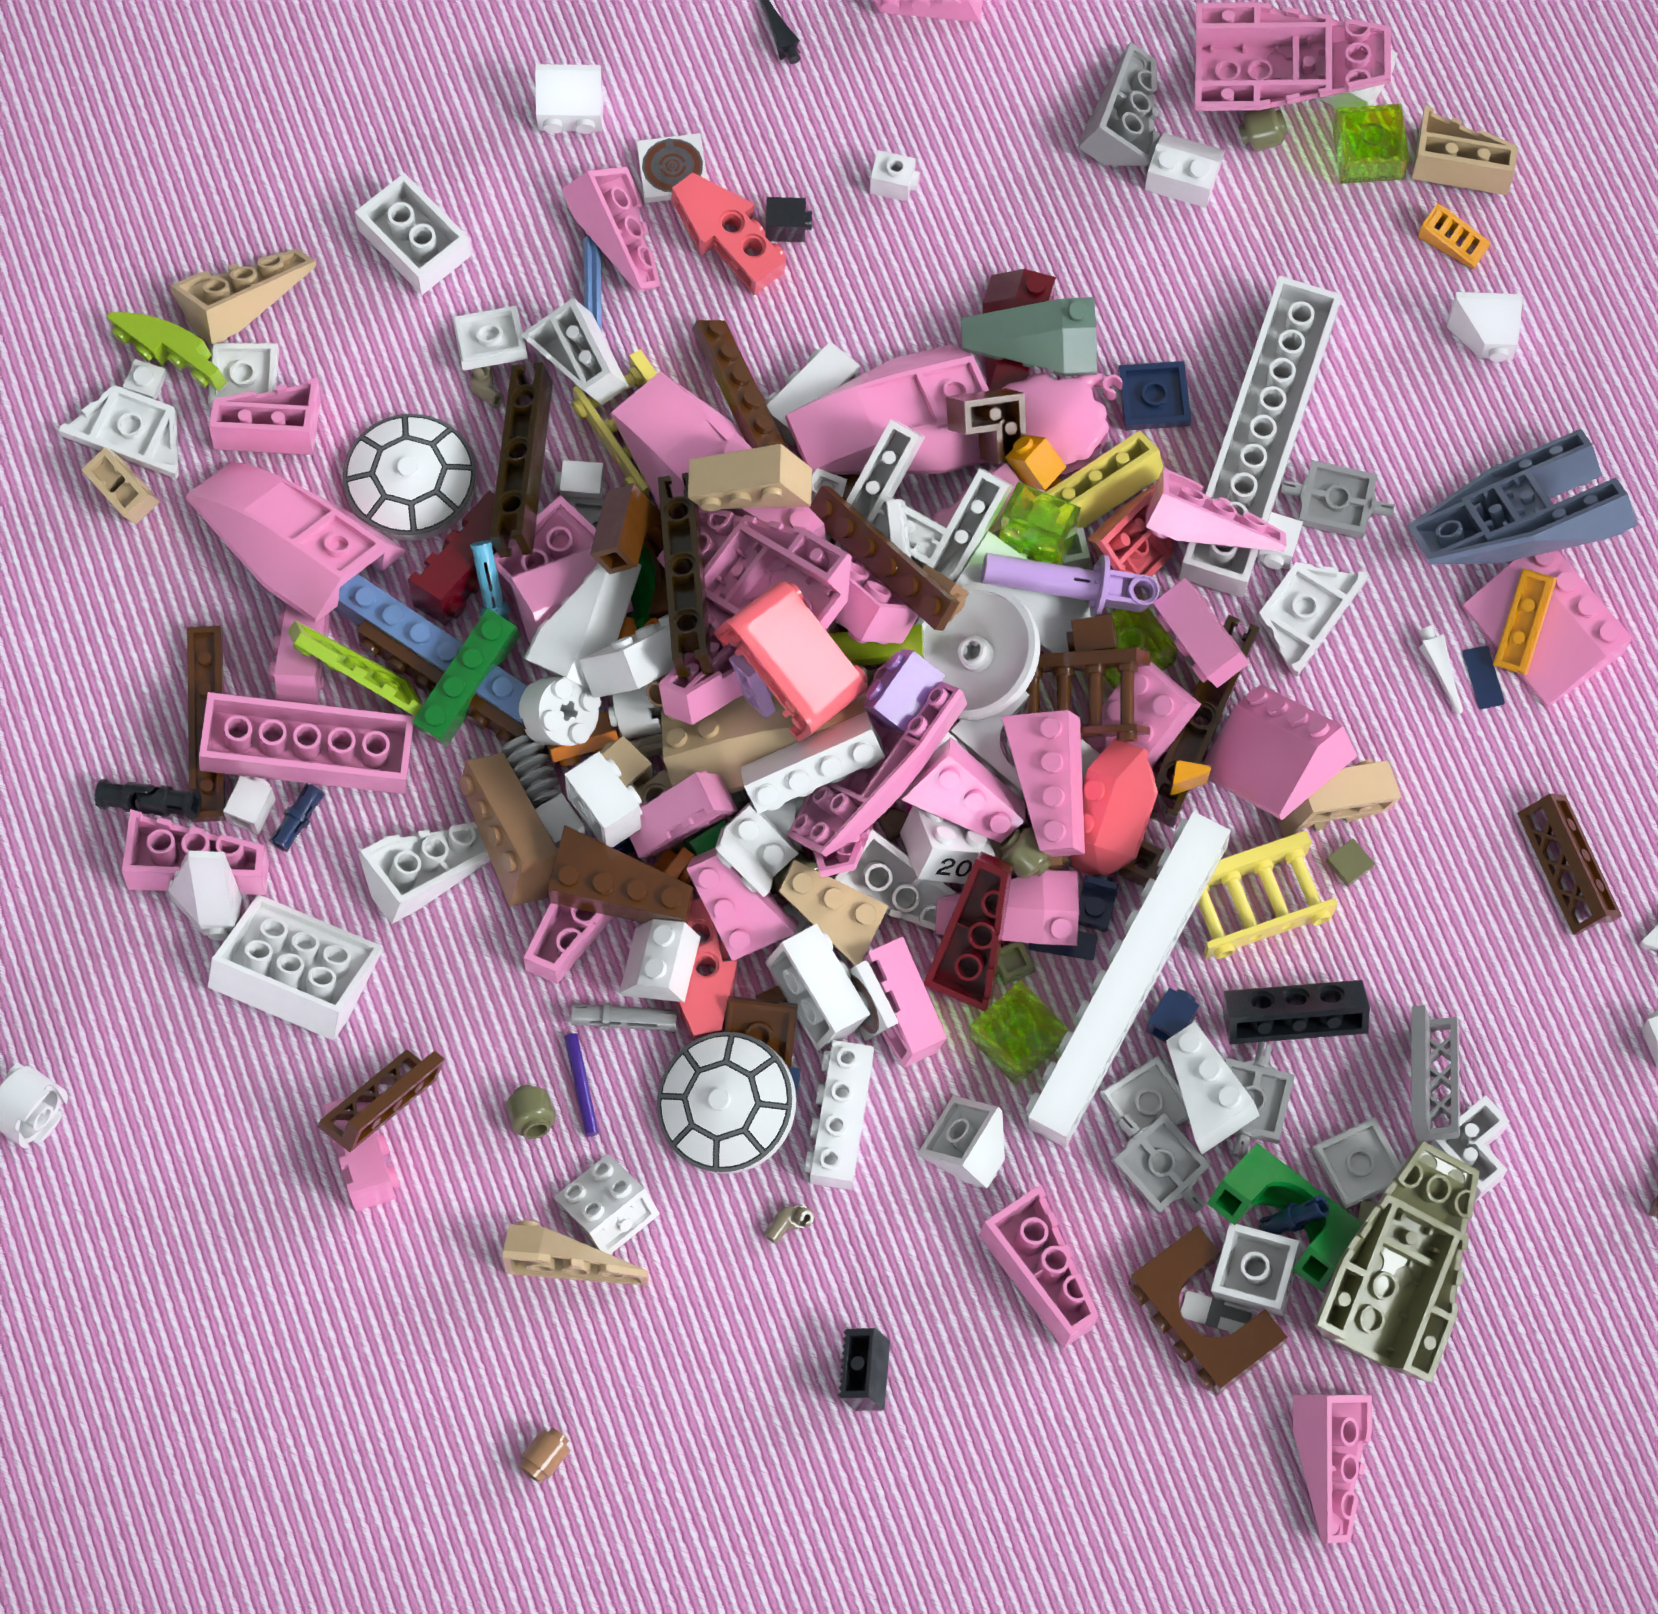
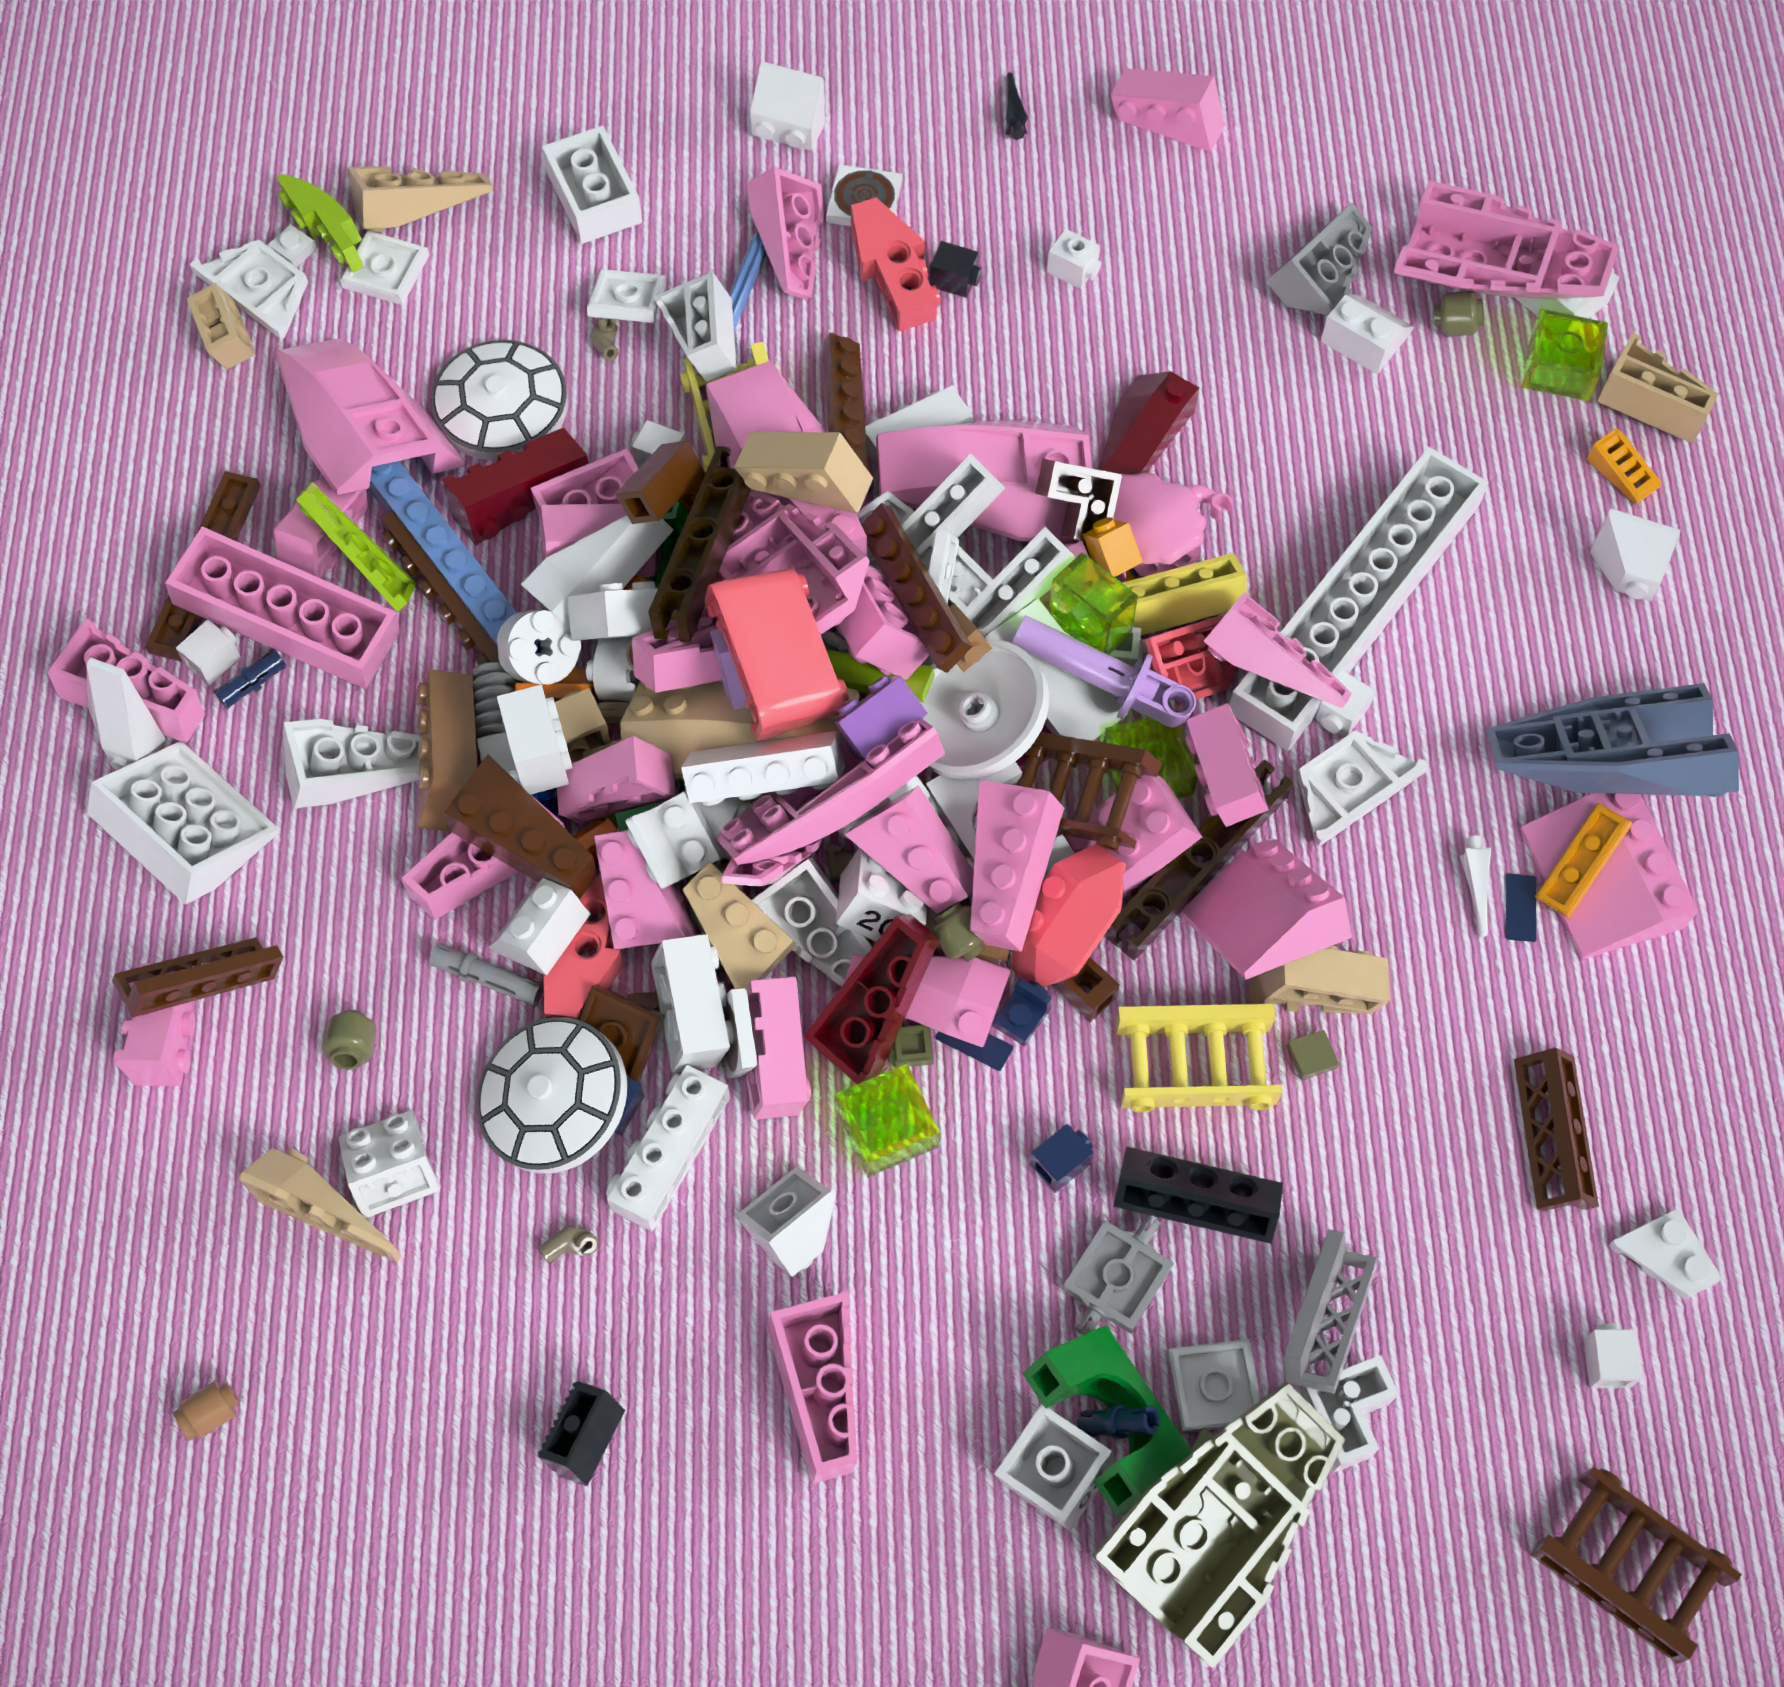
camera: 20 degrees right, 5 degrees down
(148, 799) = (112, 615): black piece -> none
(267, 421) = (384, 309): bright pink wedge -> none
(451, 697) = (432, 611): green arch -> none
(483, 553) = (522, 537): medium azure pin -> none
(521, 460) = (603, 407): dark brown piece -> none
(581, 1084) = (415, 1030): dark purple bar -> none
(1043, 334) = (1168, 434): sand green wedge -> none
(1092, 634) = (1111, 728): reddish brown brick -> none
(1130, 977) = (1021, 1099): white brick -> none
(1146, 1095) = (1004, 1243): white tile -> none
(1154, 395) = (1263, 529): dark blue plate -> none
(1160, 1163) = (991, 1311): light grey plate -> none
(1188, 776) = (1163, 907): light orange slope -> none
(1209, 1088) = (1070, 1250): white wedge -> none
(1214, 1312) = (997, 1501): sticker -> none
(1217, 1359) = (979, 1556): reddish brown arch -> none
(1337, 499) = (1420, 682): light grey plate -> none

